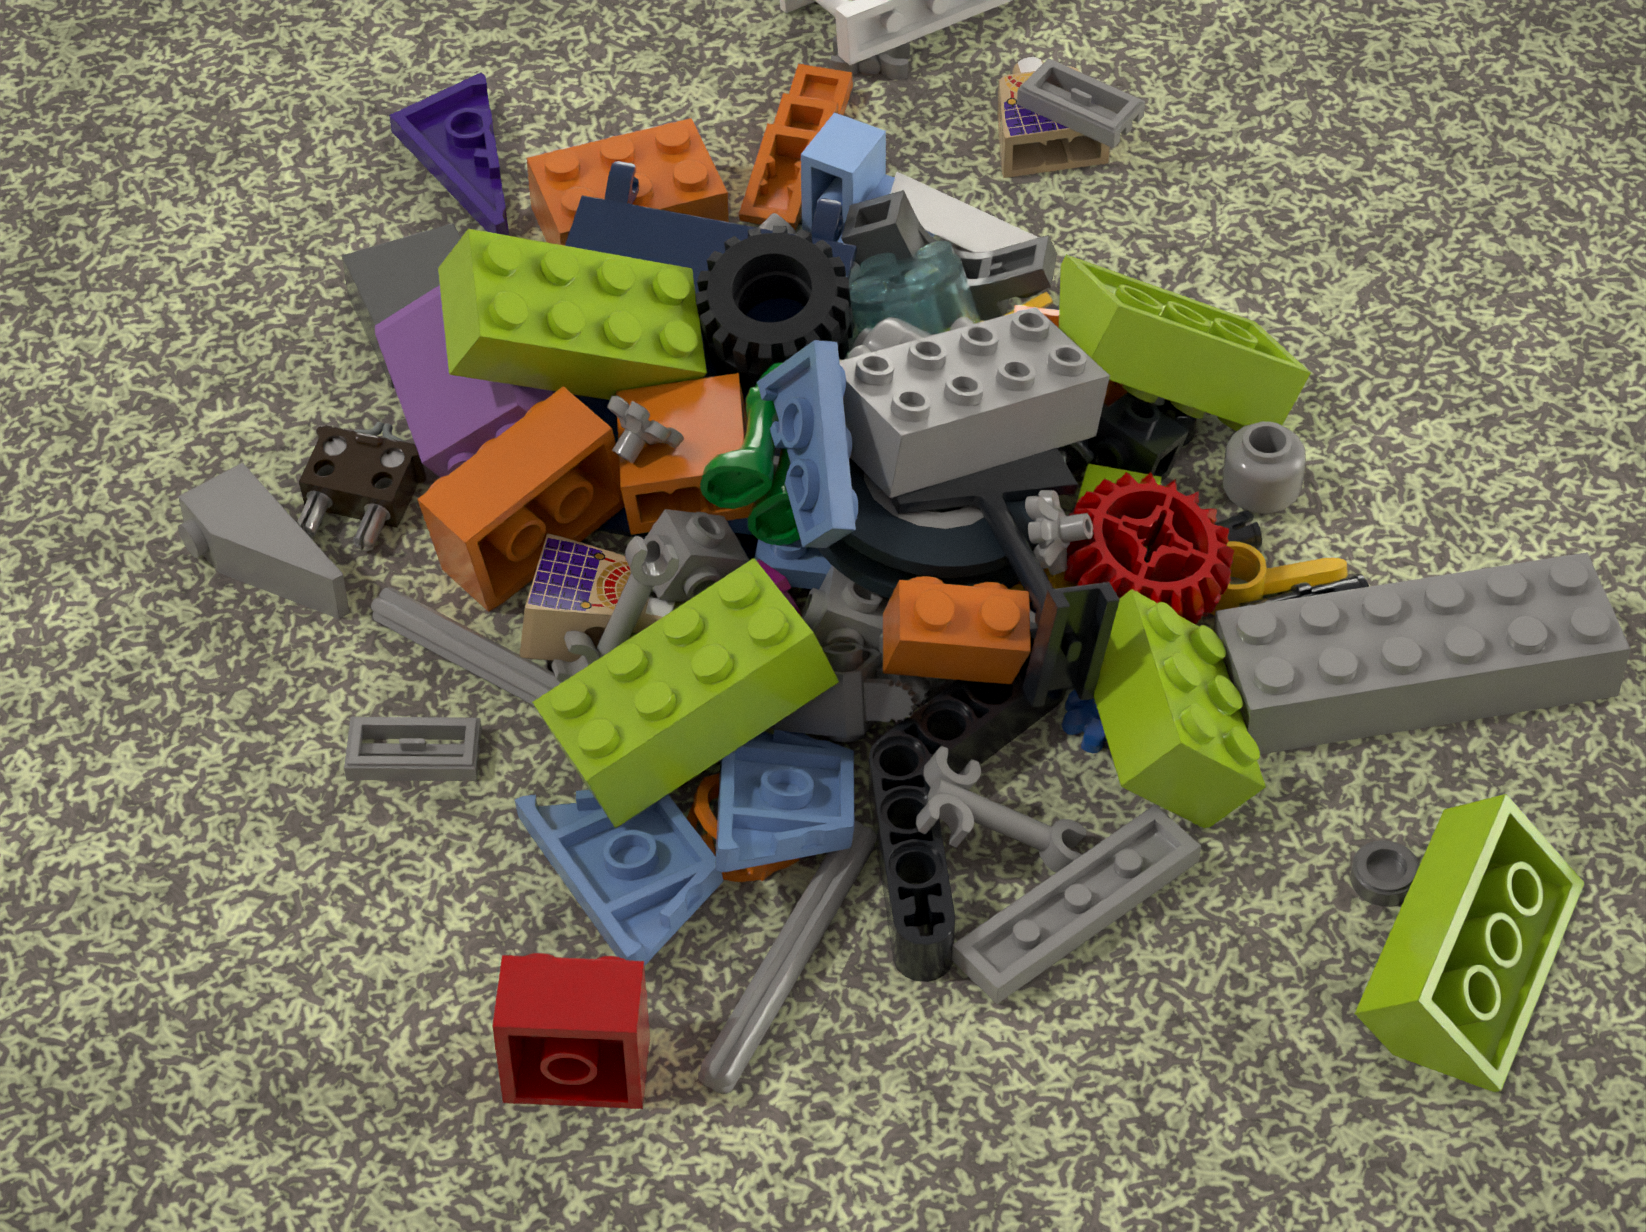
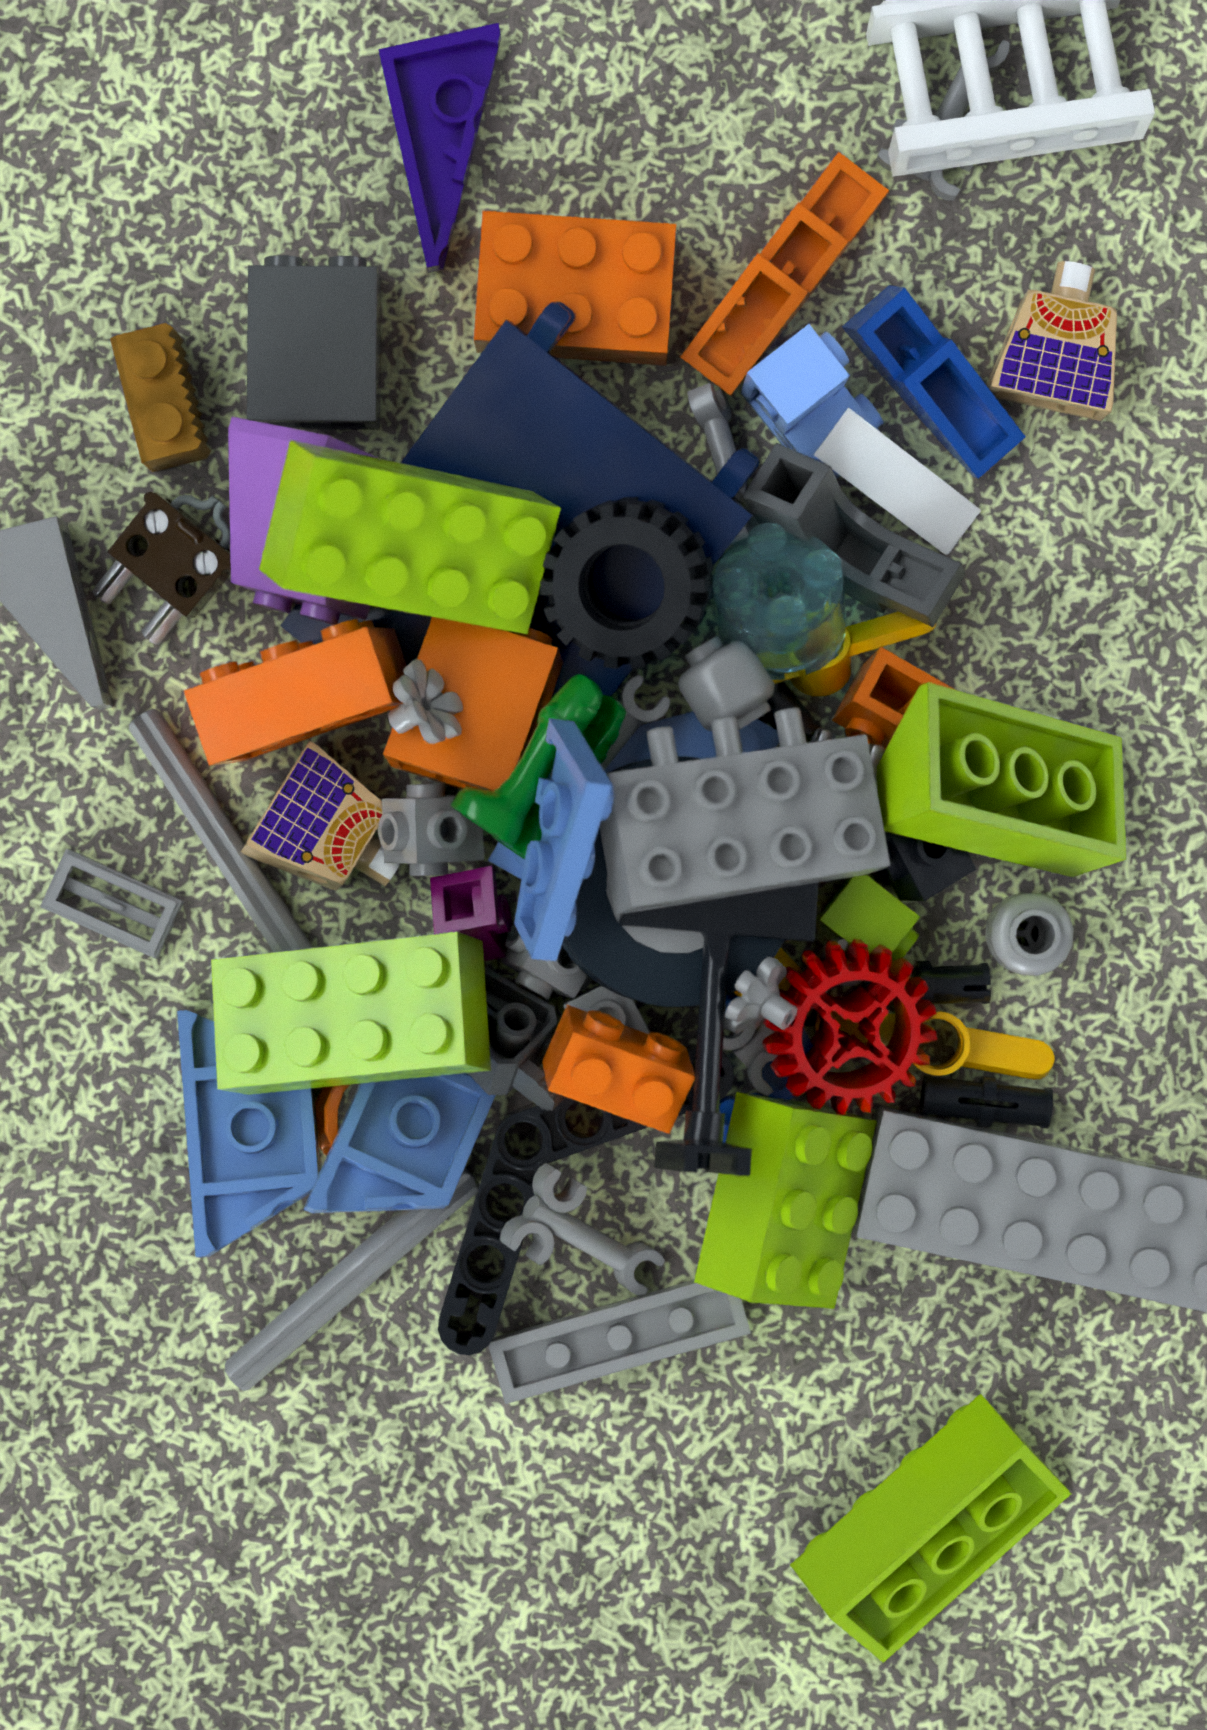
camera: 20 degrees right, 40 degrees up
(301, 371) = (160, 397): none -> pearl gold brick
(572, 1031) = (120, 1312): red brick -> none
(627, 610) = (329, 901): light grey bar -> none
(963, 166) = (934, 380): none -> blue slope
(1076, 108) = (1068, 389): light grey tile -> none
(1383, 872) = (904, 1412): flat silver tile -> none

